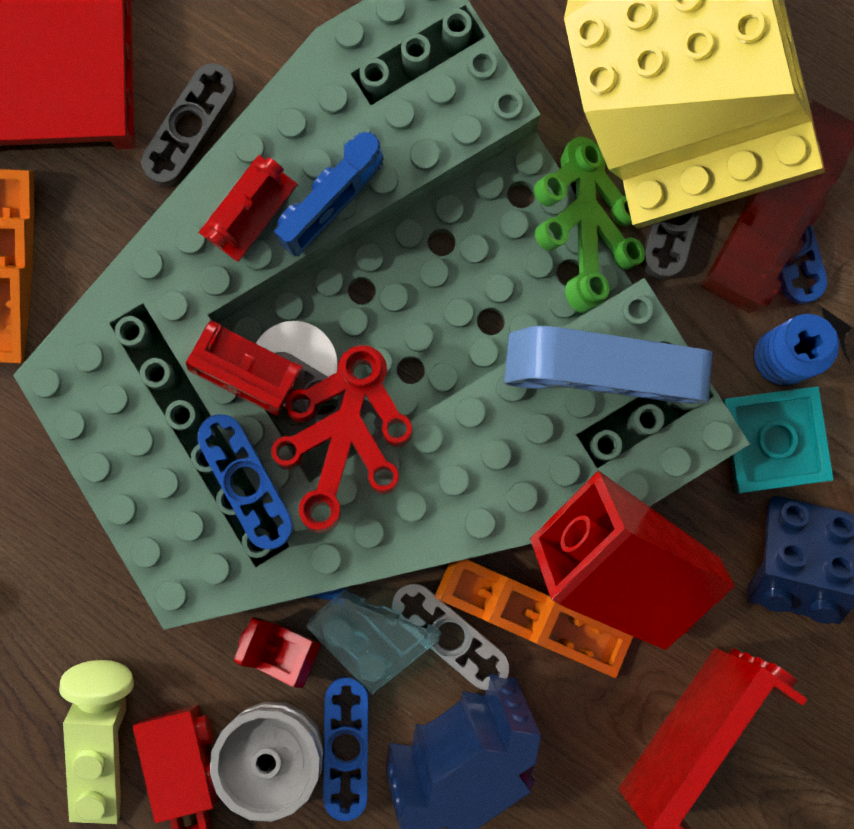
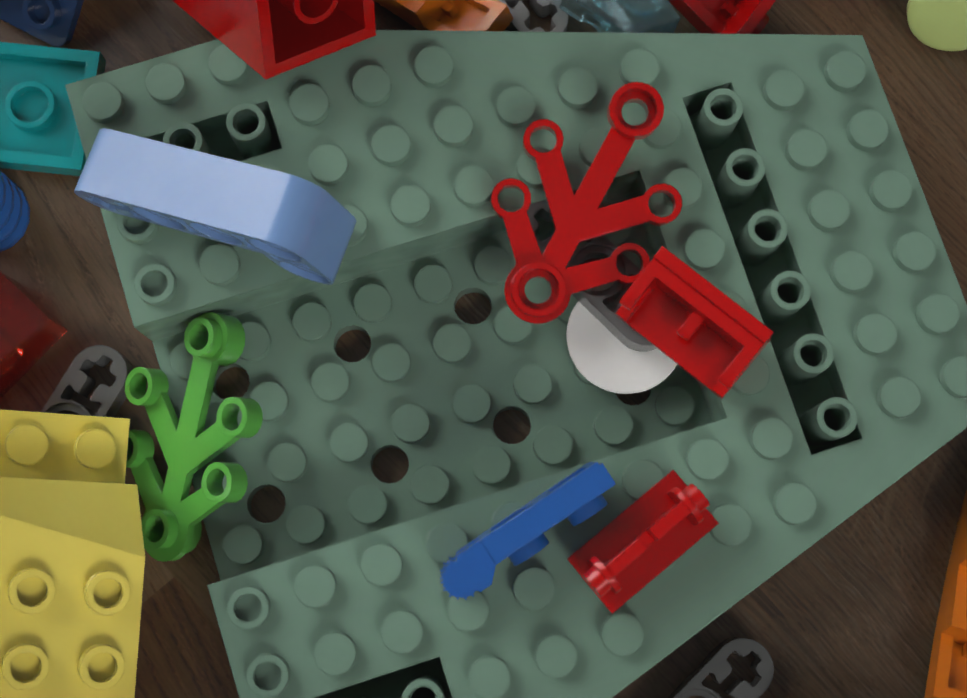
camera: 165 degrees left, 5 degrees down
(217, 454) = (692, 138): blue beam -> none

